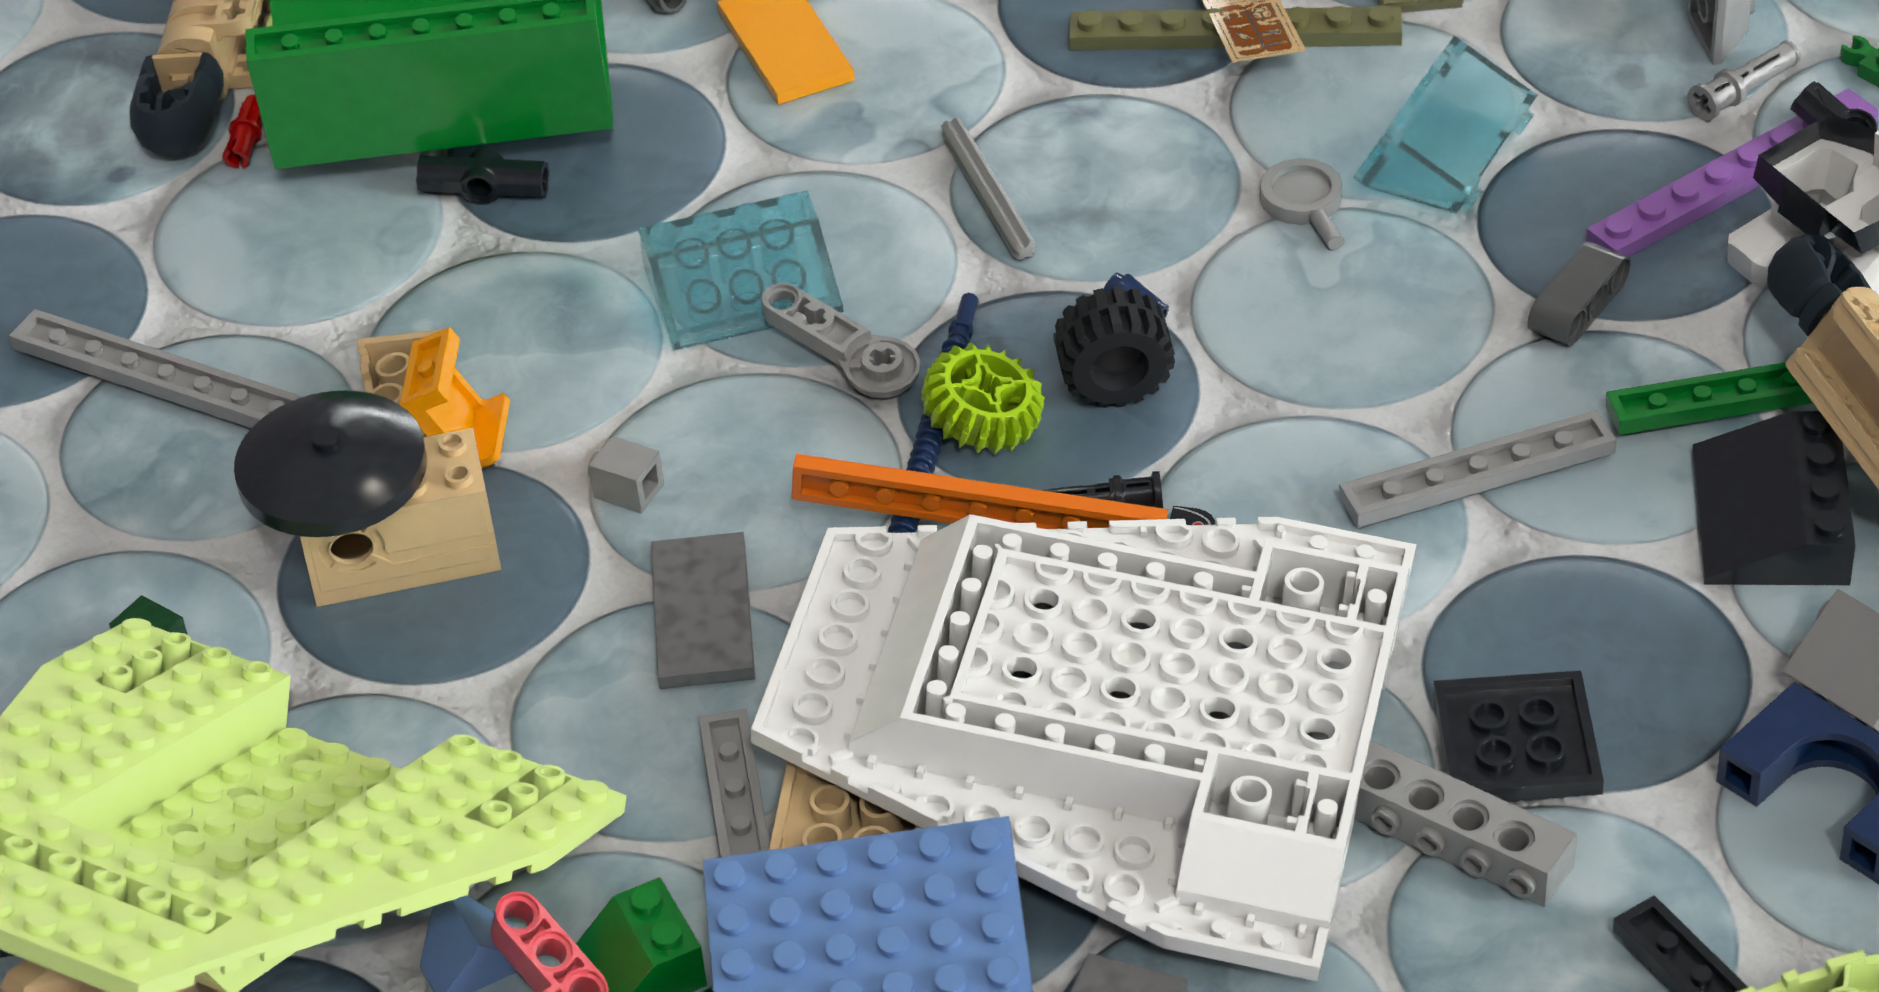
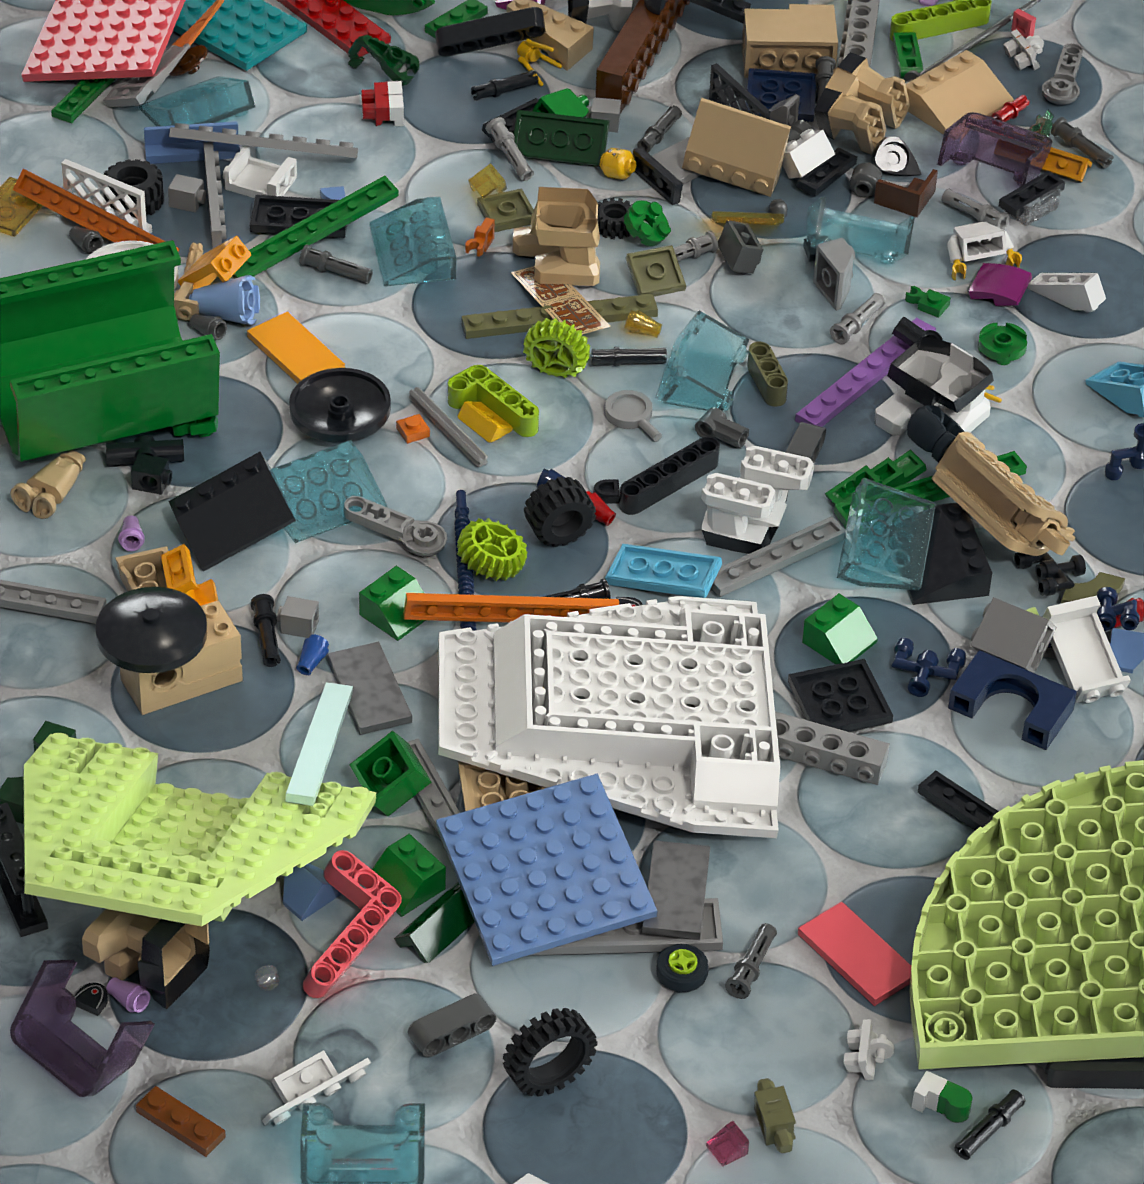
camera: 20 degrees left, 0 degrees up
(313, 211) = (49, 485): none -> tan piece
(410, 305) = (131, 534): none -> lavender cone
(476, 212) = (151, 474): none -> black brick
(552, 698) = (319, 744): none -> light aqua tile
(568, 475) = (265, 622): none -> black pin
(572, 283) = (232, 511): none -> black slope
(589, 145) = (201, 427): none -> green plate
(626, 537) = (312, 653): none -> blue cone
(669, 764) = (391, 771): none -> green brick
(765, 462) = (384, 602): none -> green slope
(816, 133) = (340, 405): none -> black dish
(930, 185) = (413, 428): none -> orange plate
(1052, 184) = (484, 421): none -> yellow slope
(1065, 127) = (484, 386): none -> lime beam
(1192, 350) = (603, 512): none -> red cone
(1202, 77) = (556, 348): none -> lime gear
(1220, 323) = (608, 490): none -> black tile
(1270, 470) = (664, 571): none -> medium azure tile
(1327, 103) = (627, 356): none -> black pin
(1332, 308) = (669, 475): none -> black beam
(1366, 53) = (642, 324): none -> clear yellow cone
(1442, 232) = (715, 424): none -> dark grey piece
(1452, 382) = (749, 509): none -> white piece
(1549, 614) = (839, 631): none -> green slope
(1556, 156) = (767, 374): none -> olive beam
(1680, 459) = (886, 538): none -> clear light blue slope
(1693, 697) = (926, 665): none -> dark blue piece
(1704, 353) = (887, 473): none -> green slope

